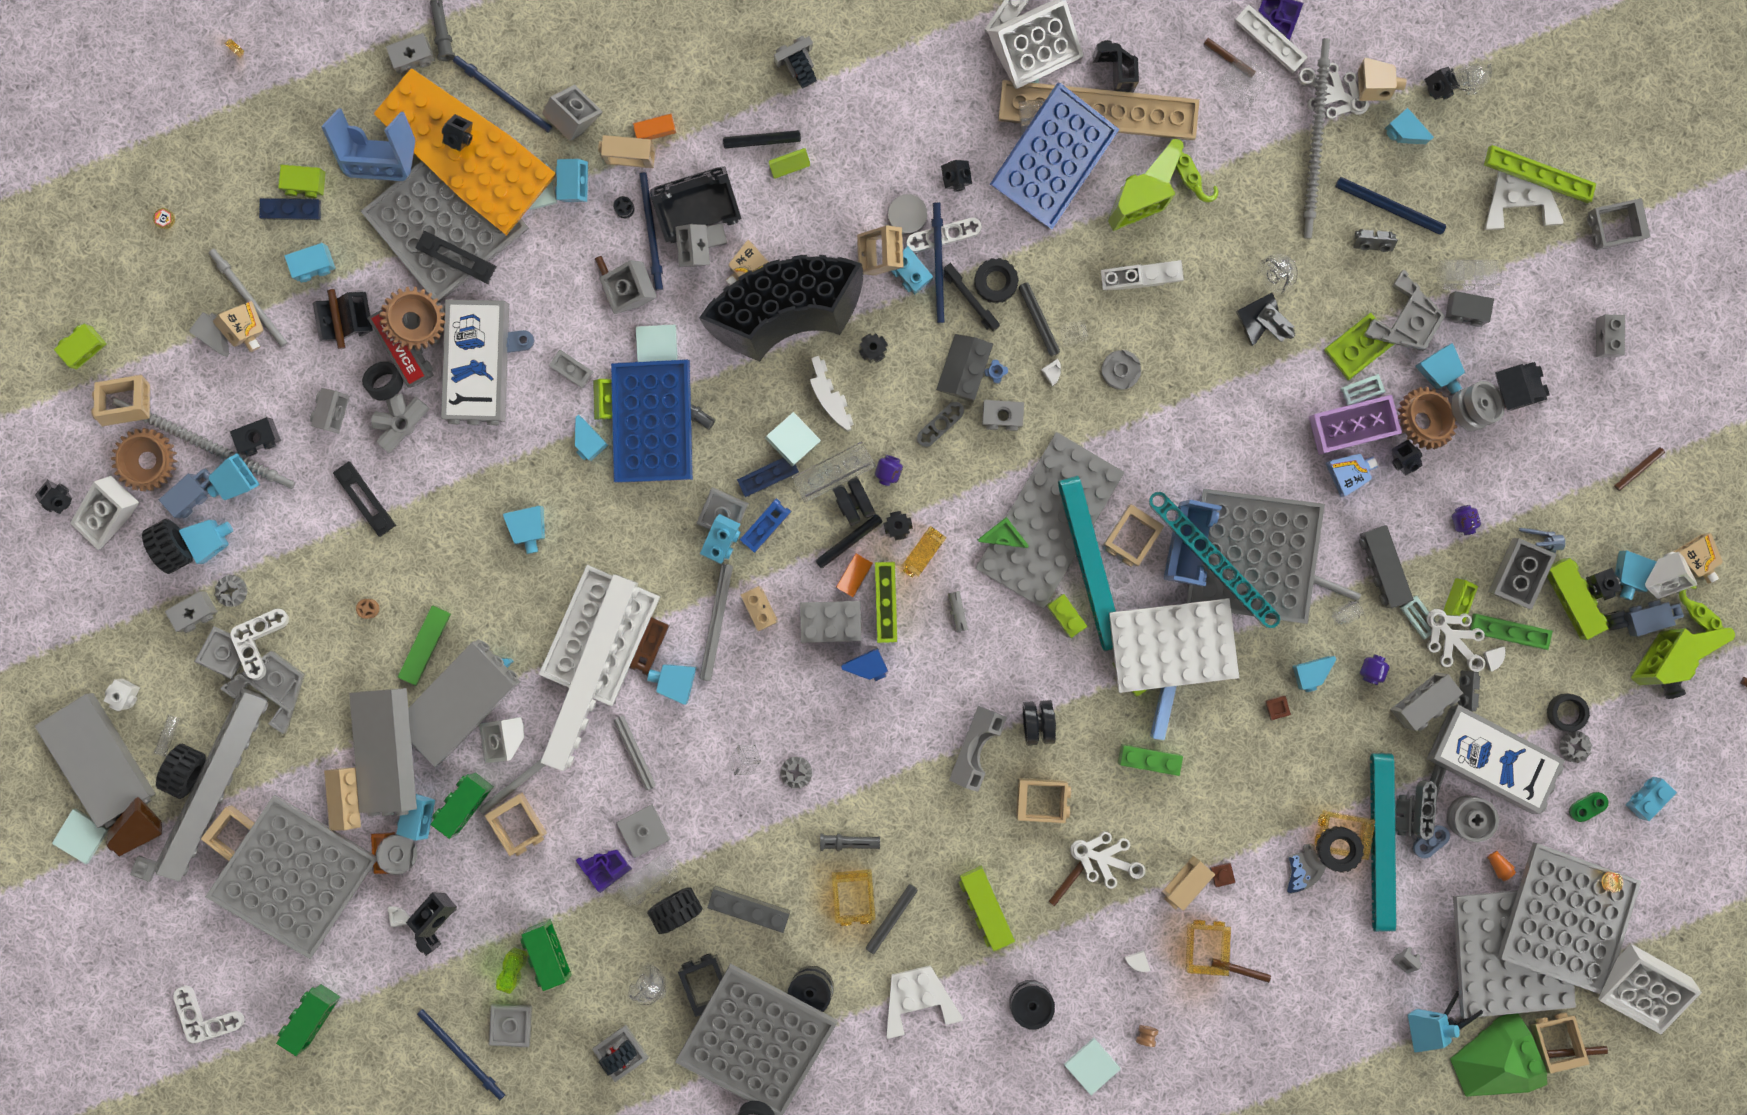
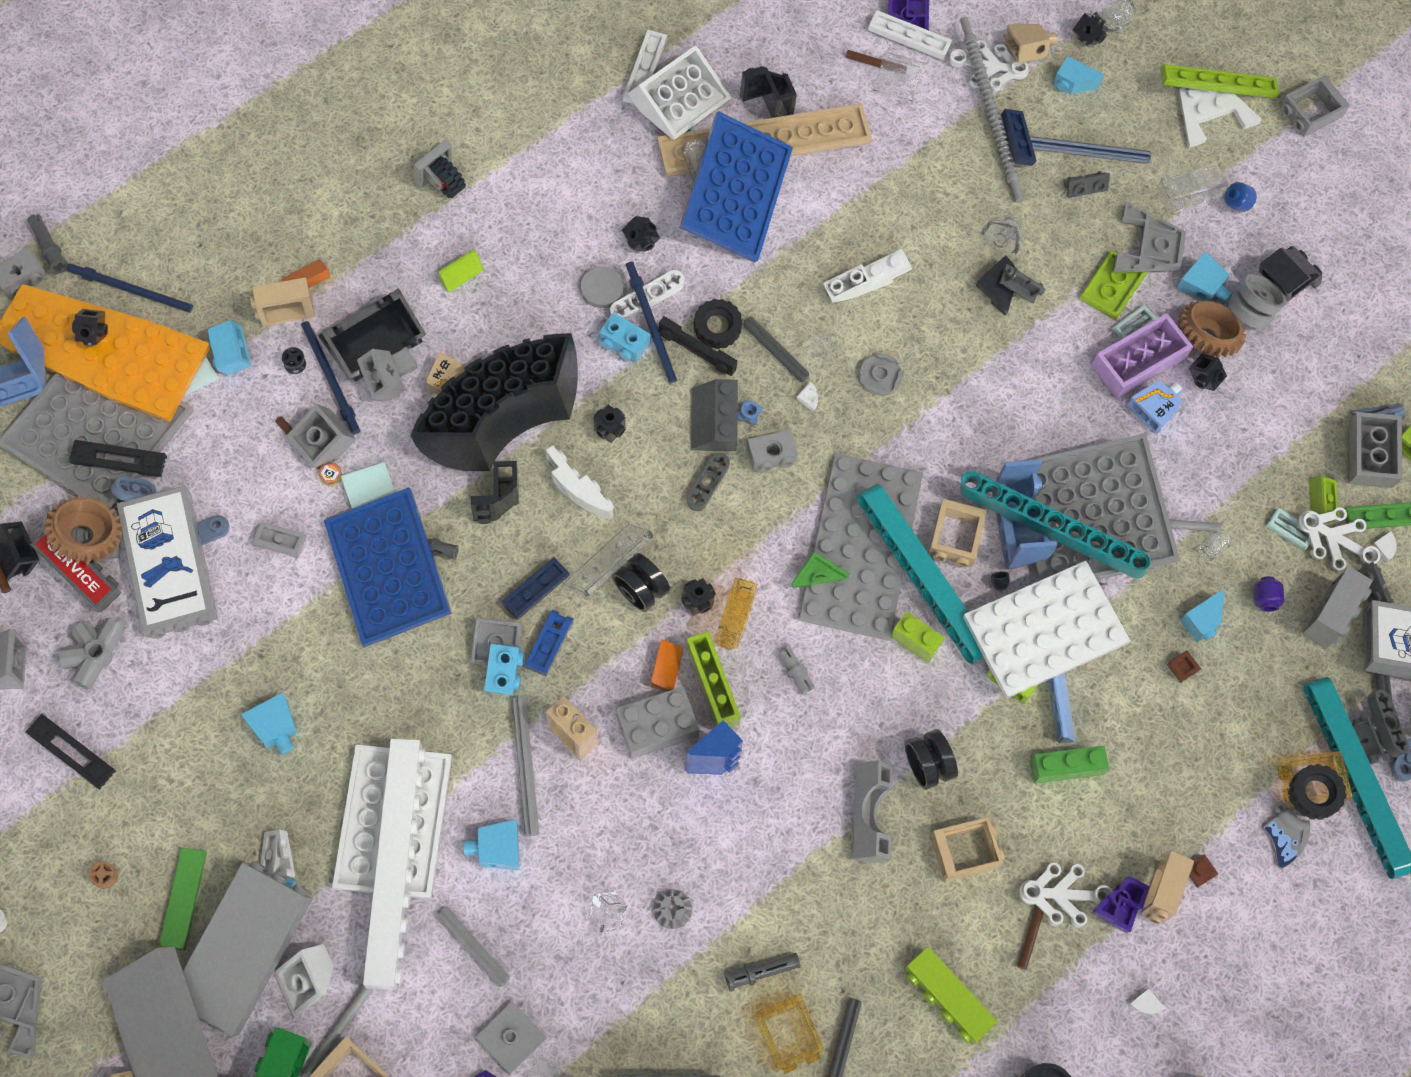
camera: 25 degrees left, 20 degrees down
(375, 372) = (69, 619): black tyre -> none
(461, 288) = (131, 488): none -> sand blue plate
(502, 637) = (277, 854): none -> white wing
(571, 112) = (209, 284): light grey slope -> none
(587, 440) = (320, 608): medium azure slope -> none
(602, 399) = (324, 562): lime slope -> none
(628, 321) = (330, 474): none -> tile
(649, 645) = (455, 815): reddish brown plate -> none
(745, 397) = (493, 507): none -> black piece
(762, 139) = (424, 257): black axle -> none
(792, 439) = (551, 541): light aqua tile -> none
(848, 541) = (648, 632): black axle -> none
(888, 470) = (668, 543): dark purple head -> none
(891, 250) = (595, 305): tan window -> none
(1149, 883) = (1123, 904): none -> dark purple slope
(1152, 192) = (846, 195): lime slope -> none
(1154, 587) = (1000, 580): none -> black hinge
(1222, 970) = (1246, 972): clear yellow window -> none
(1244, 971) = (1266, 975): reddish brown bar -> none
(1330, 176) = (1018, 137): none -> dark blue plate
(1386, 567) = (1234, 486): dark grey brick -> none
(1466, 520) = (1294, 416): dark purple head -> none
(1469, 308) = (1206, 218): dark grey brick -> none
(1508, 297) = (1240, 197): none -> blue head
(1610, 336) = (1354, 205): light grey brick -> none

